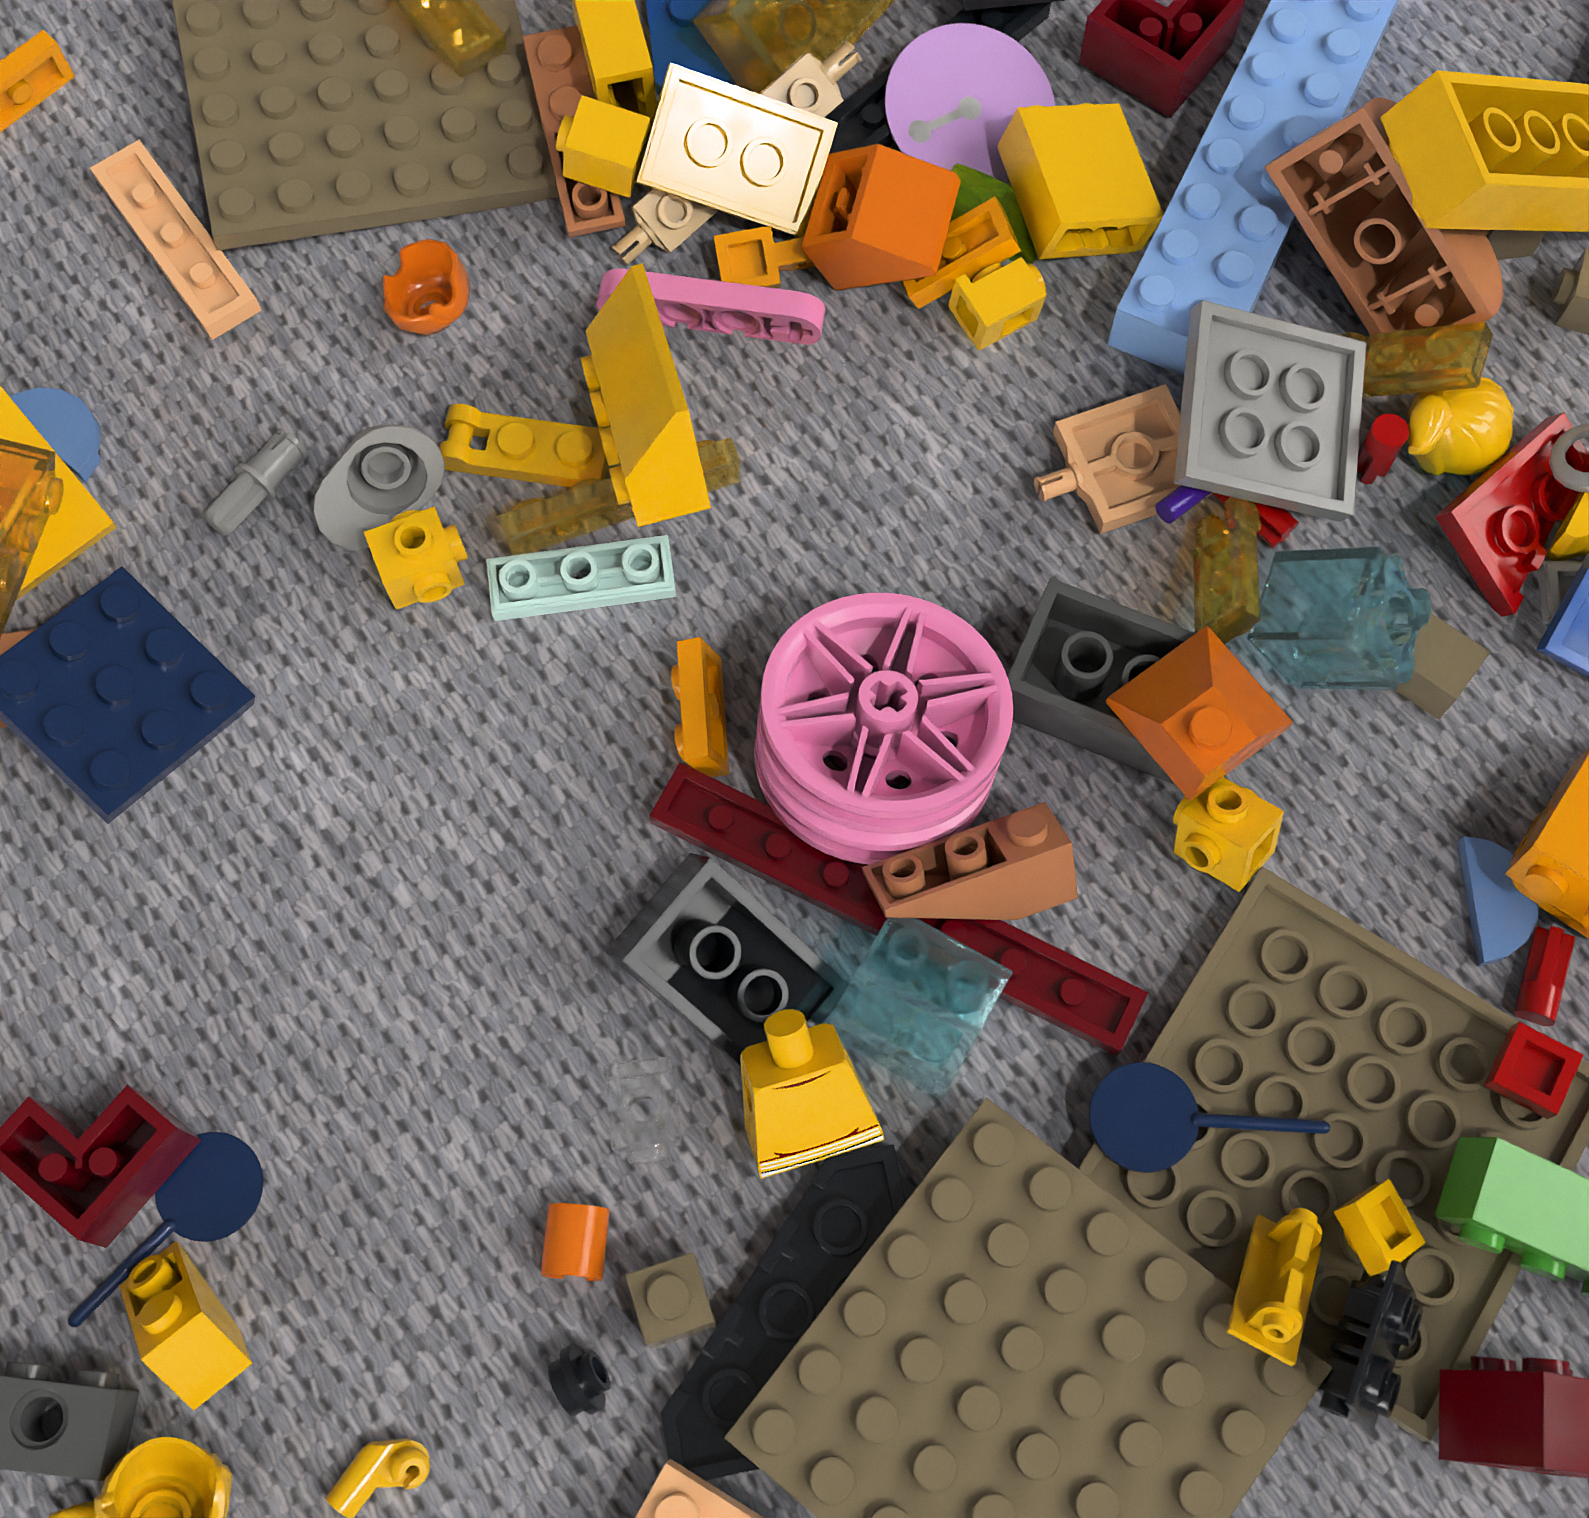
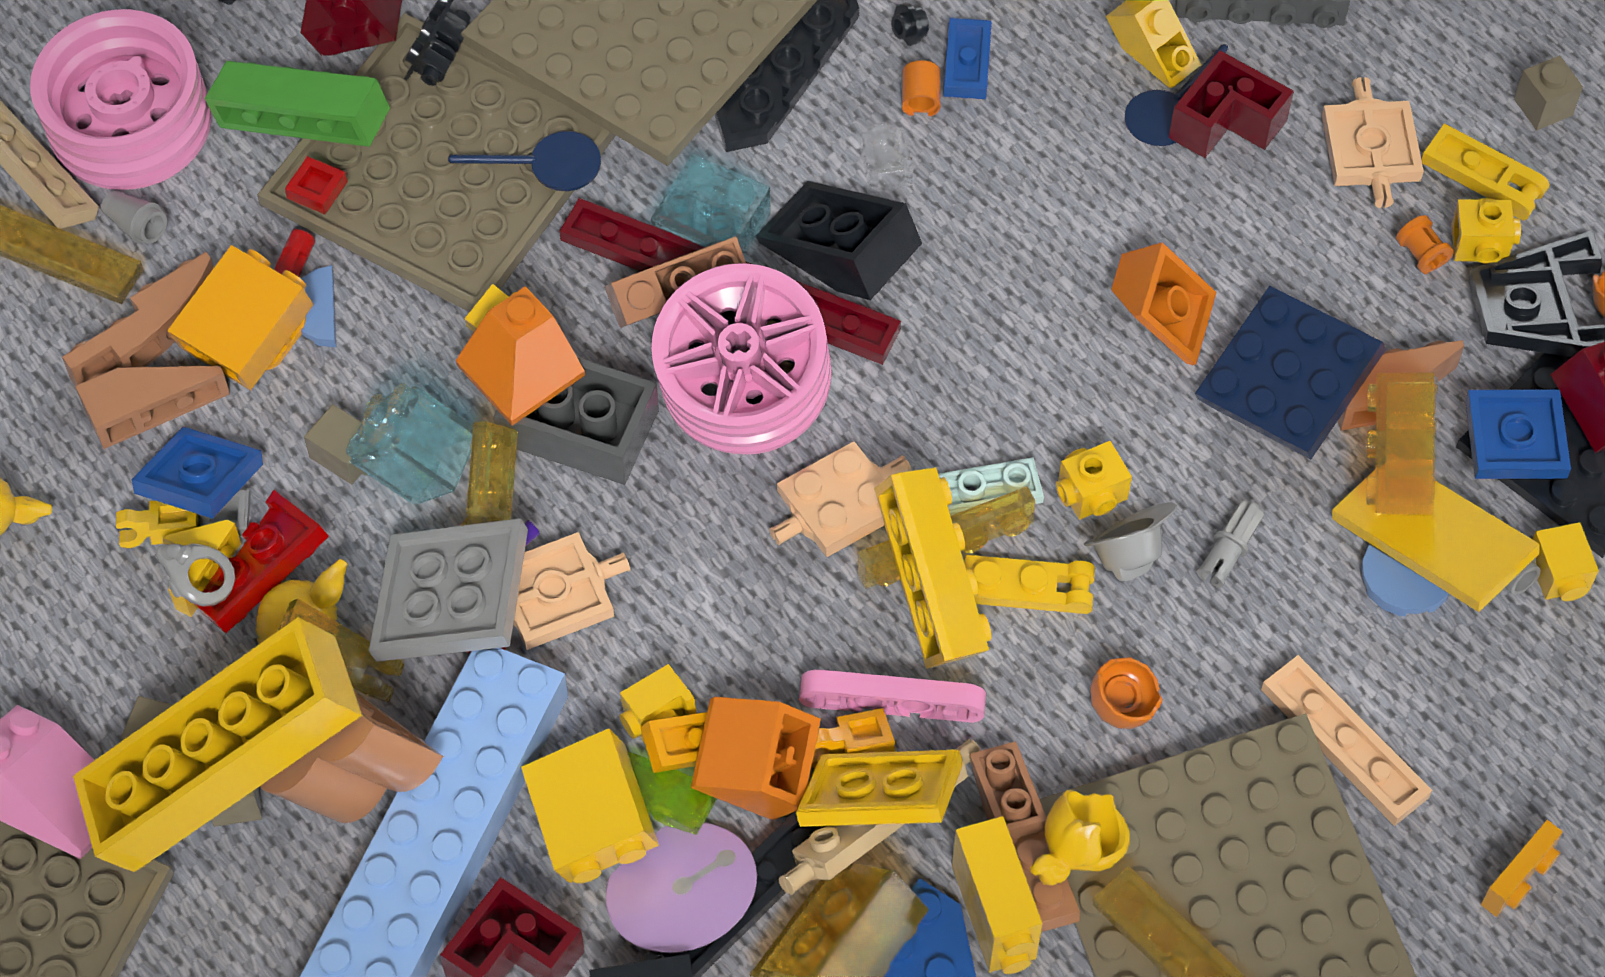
camera: 175 degrees right, 10 degrees down
(272, 829) = (1165, 298): none -> orange slope
(492, 1304) = (967, 58): none -> blue plate
(507, 85) = (1081, 835): none -> yellow hair
(603, 145) = (989, 773): yellow brick -> none
(671, 1300) = (857, 57): dark tan brick -> none
(700, 689) = (870, 393): light orange plate -> none
(754, 570) = (835, 499): none -> light nougat plate
(803, 1096) = (780, 153): yellow torso -> none
(1277, 1284) = (493, 62): yellow hinge -> none
(1379, 1227) = (425, 97): yellow plate -> none
(1381, 446) = (362, 588): red piece -> none

